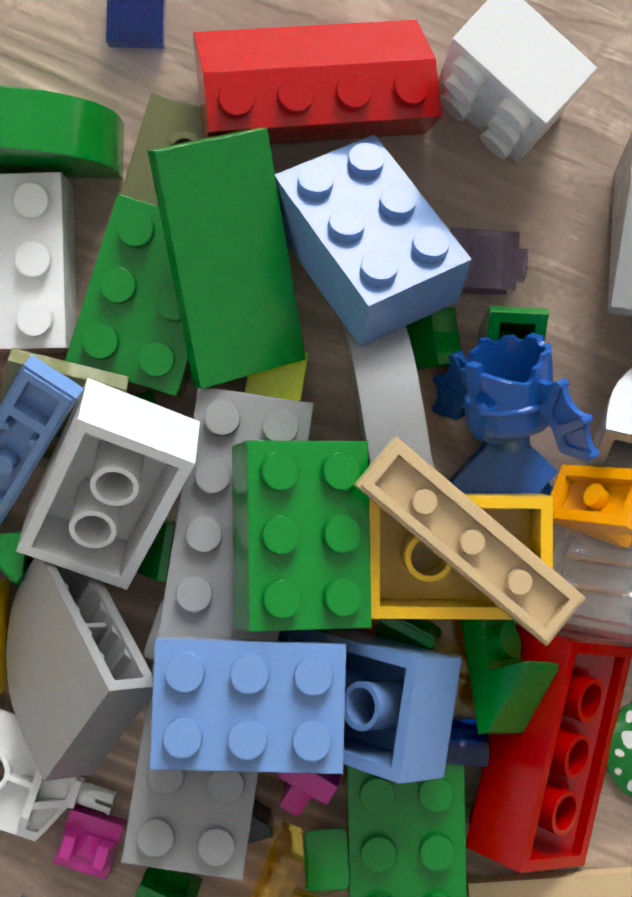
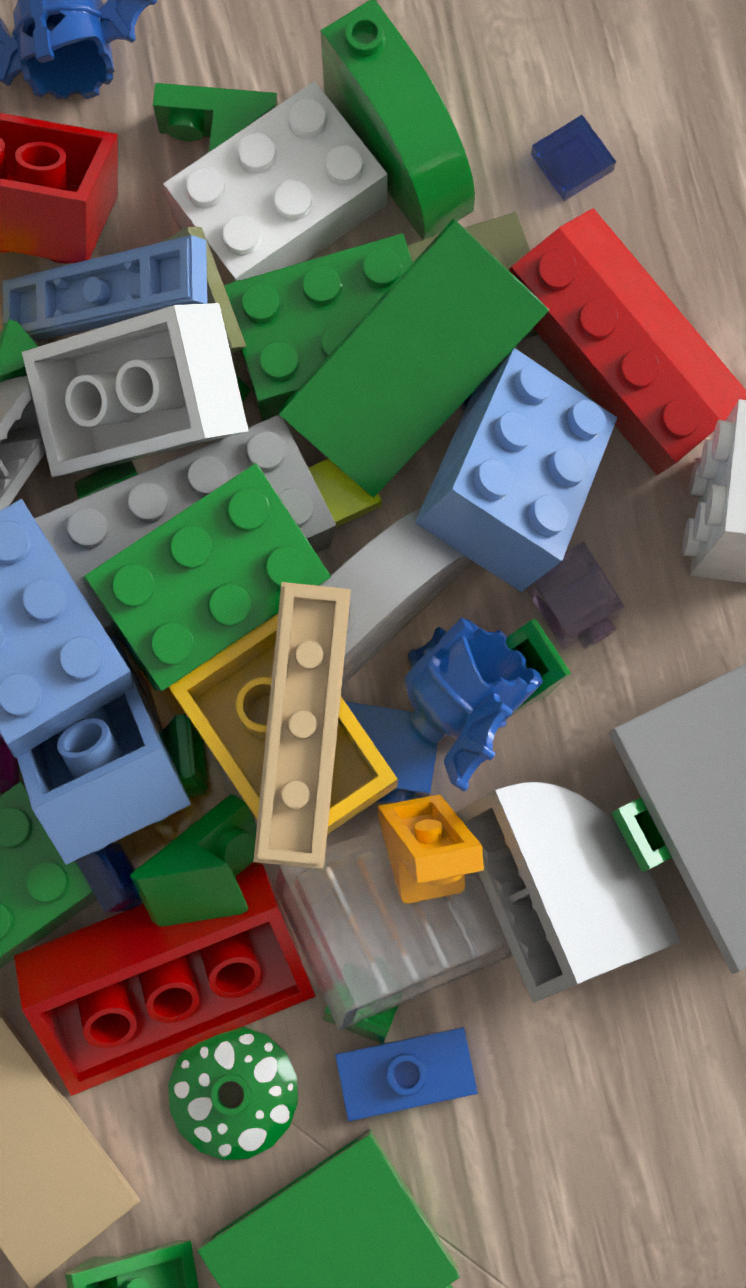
camera: 55 degrees right, 10 degrees down
(434, 338) = (475, 597): green slope -> none

